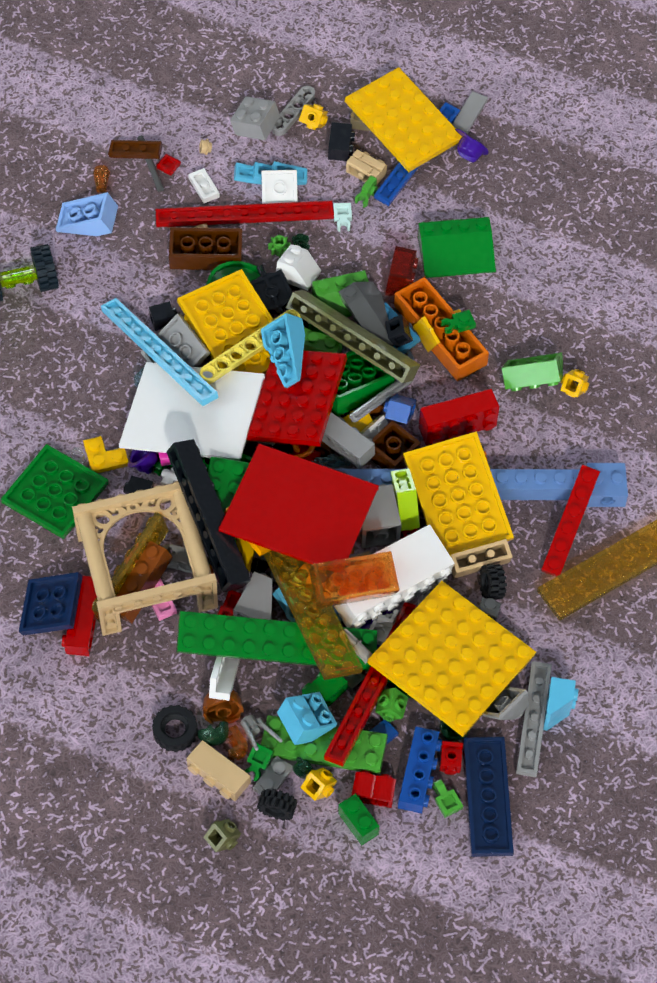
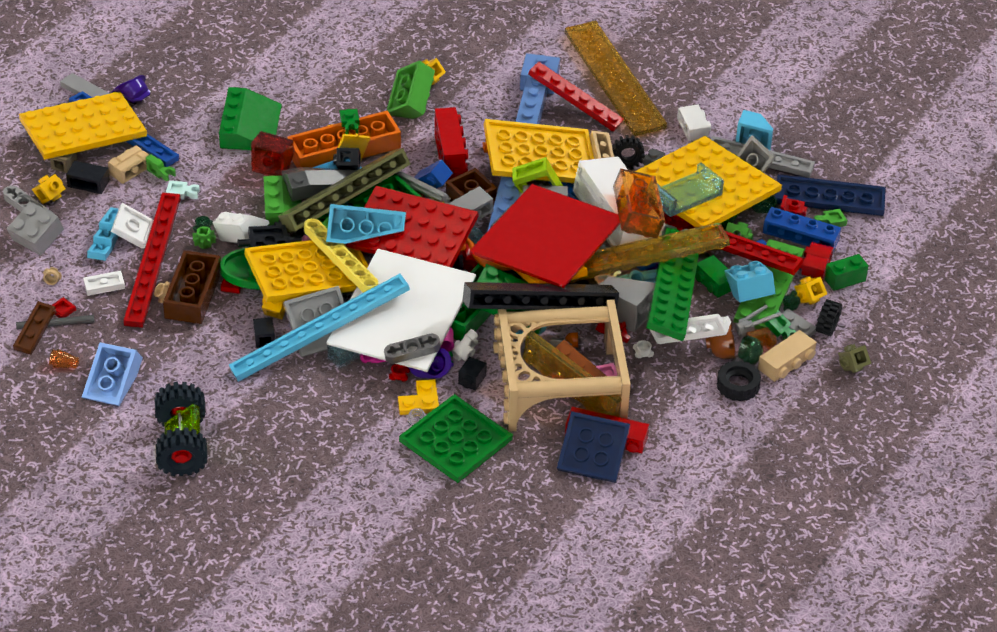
camera: 80 degrees left, 15 degrees down
(137, 434) = (407, 355): none -> flat silver beam
(412, 633) = (690, 190): none -> clear light blue panel
(571, 644) = (693, 122): none -> white brick

